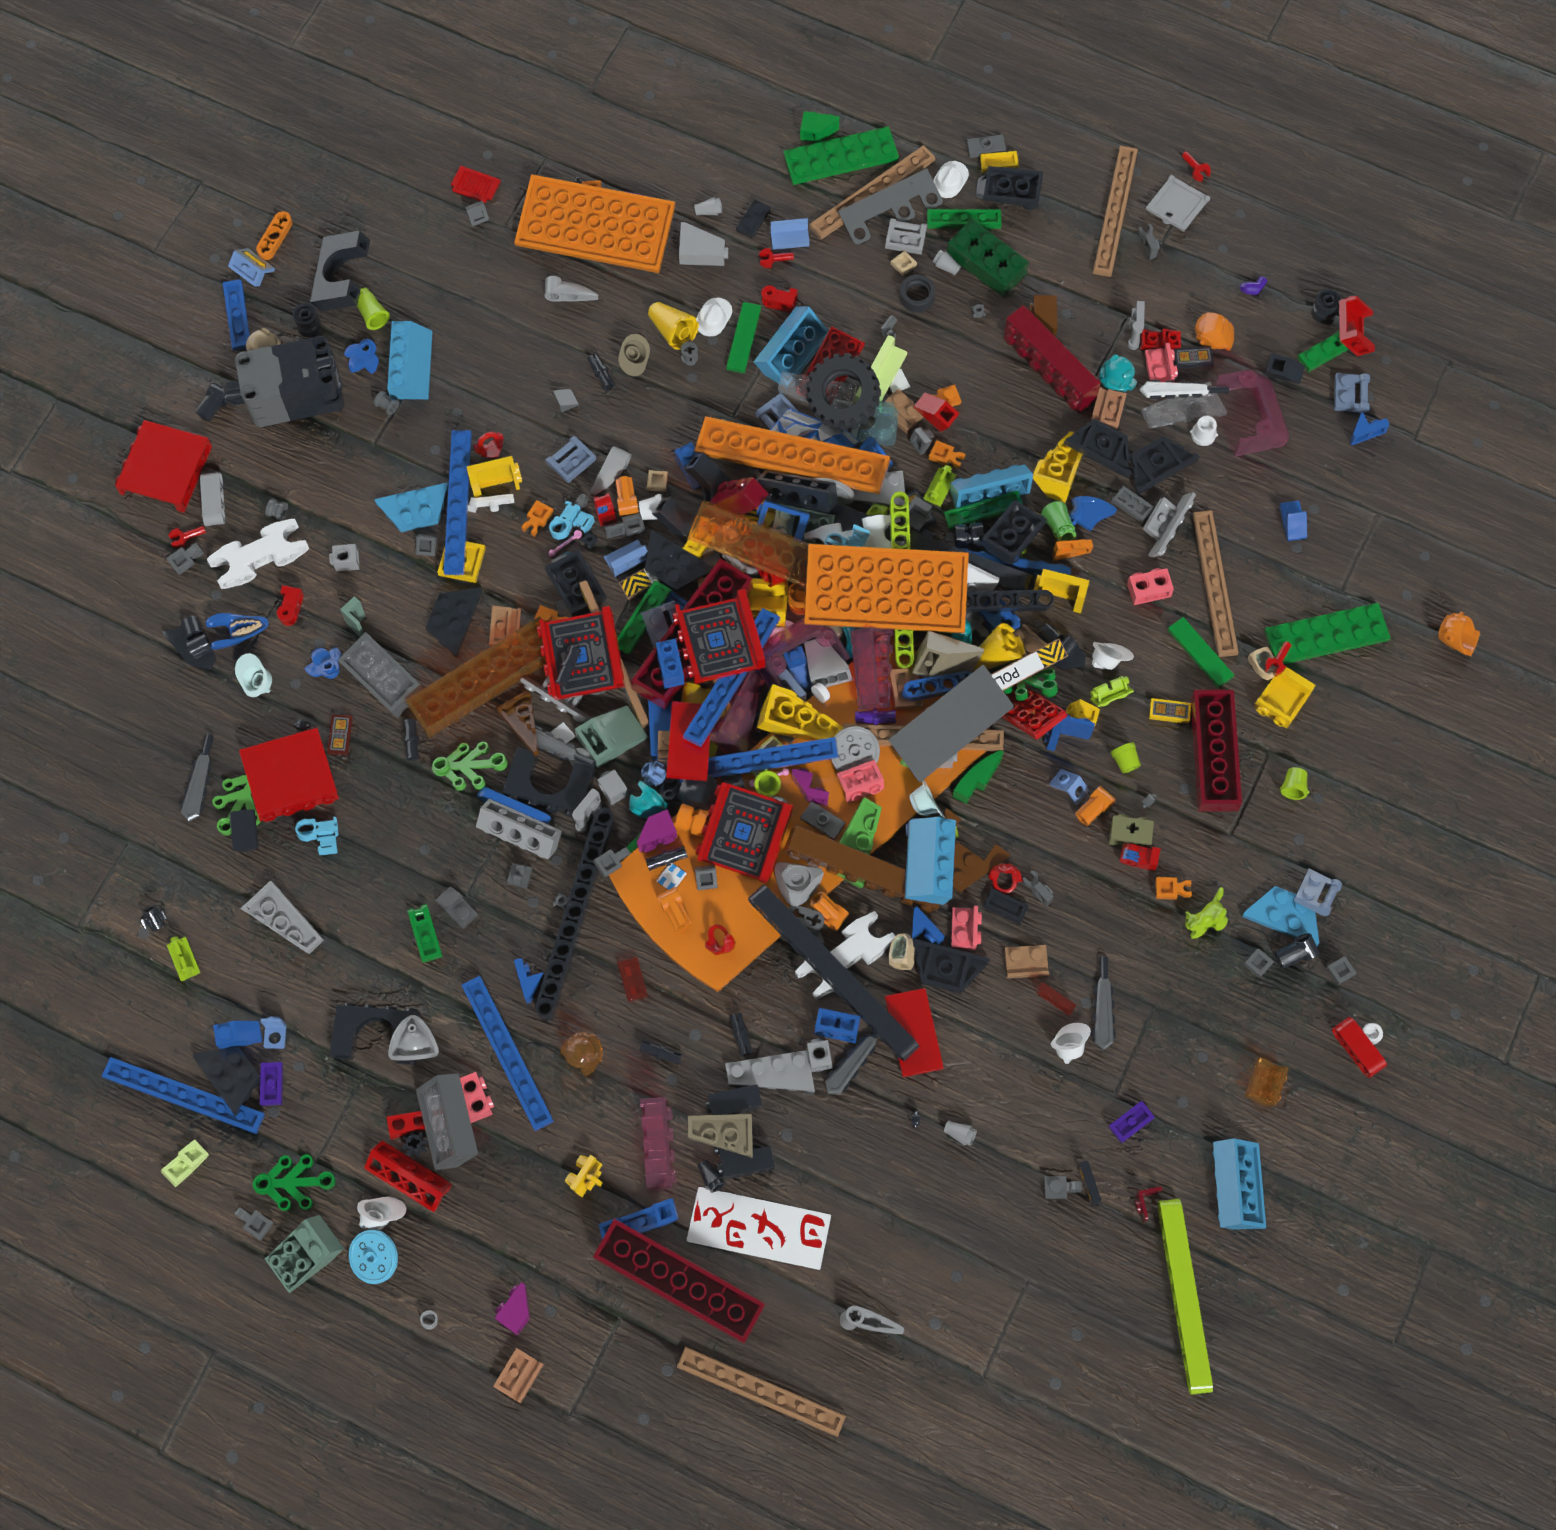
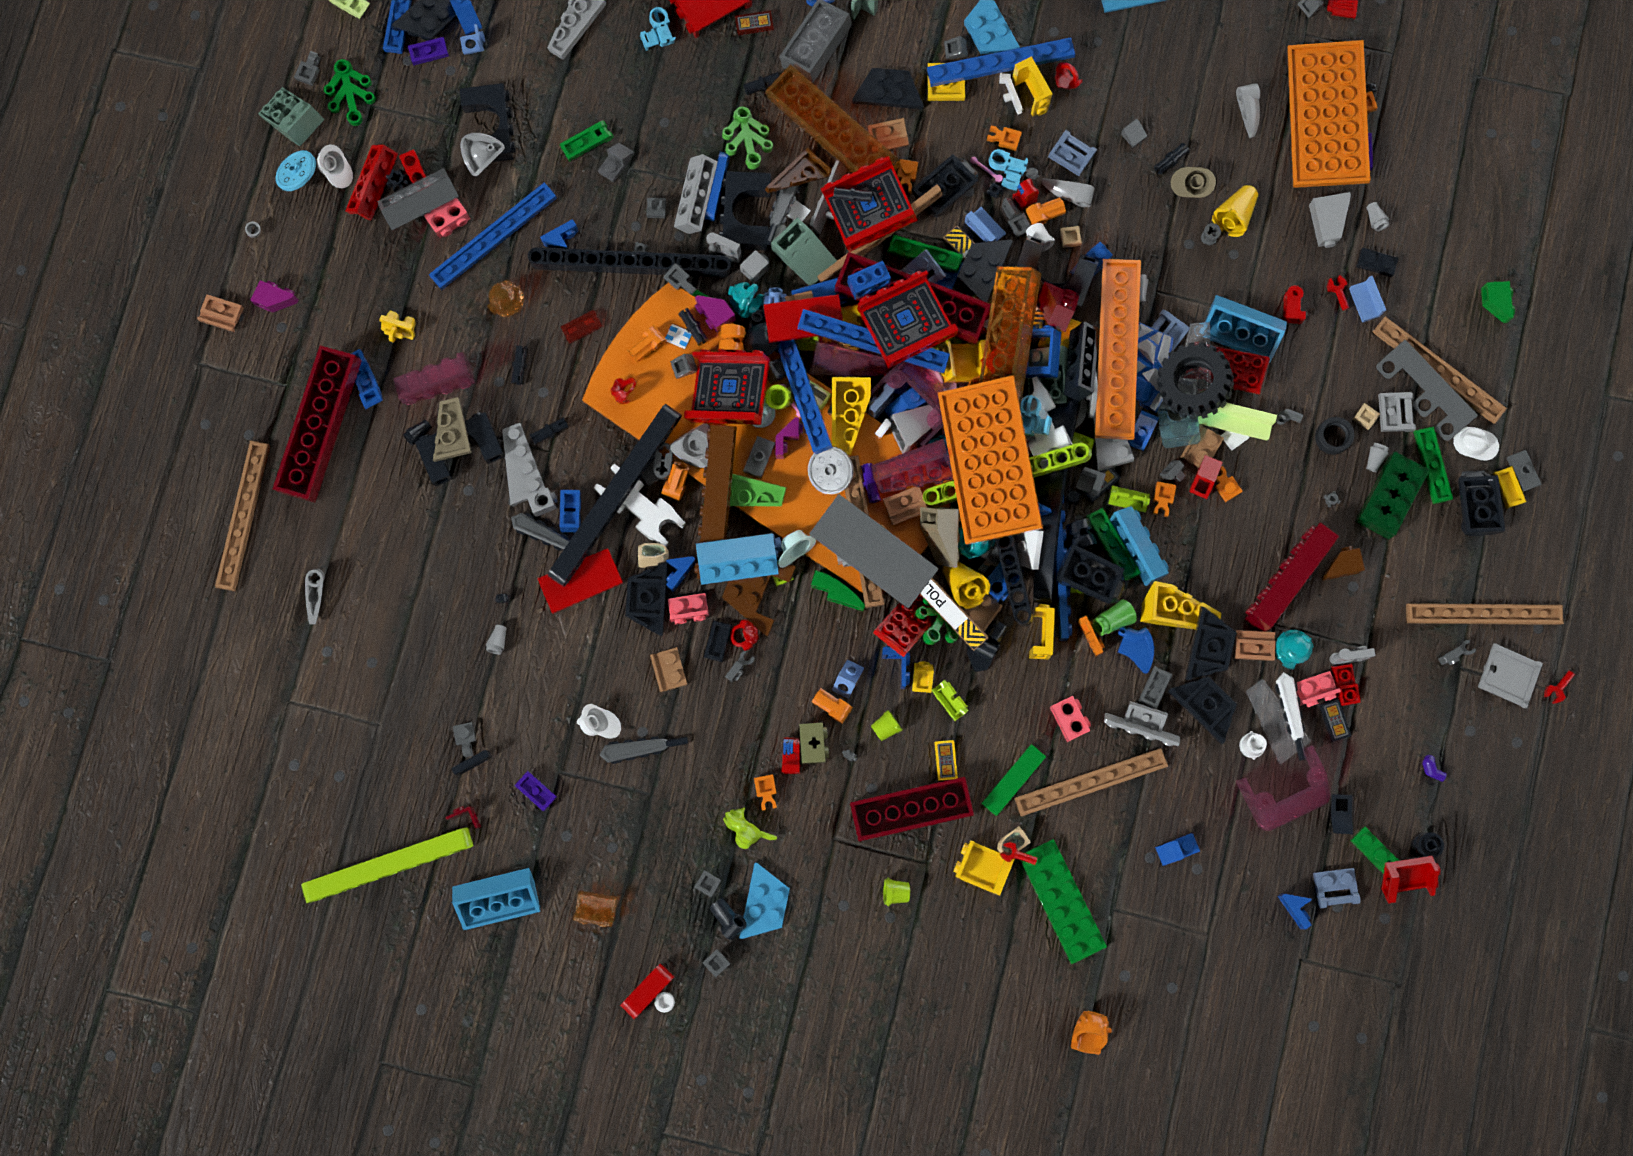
camera: 80 degrees right, 10 degrees up
(714, 316) = (1259, 249): white piece -> none
(744, 337) = (1243, 282): green tile -> none
(759, 1228) = (382, 485): white sticker -> none
(840, 155) = (1473, 330): green plate -> none
(861, 781) = (803, 482): coral bracket -> none
(937, 682) = (917, 533): blue beam -> none
(1056, 999) = (636, 702): clear red tile -> none
(1109, 655) = (989, 692): white piece -> none
(1214, 331) = (1368, 737): orange helmet -> none
(1311, 889) = (792, 923): sand blue plate -> none

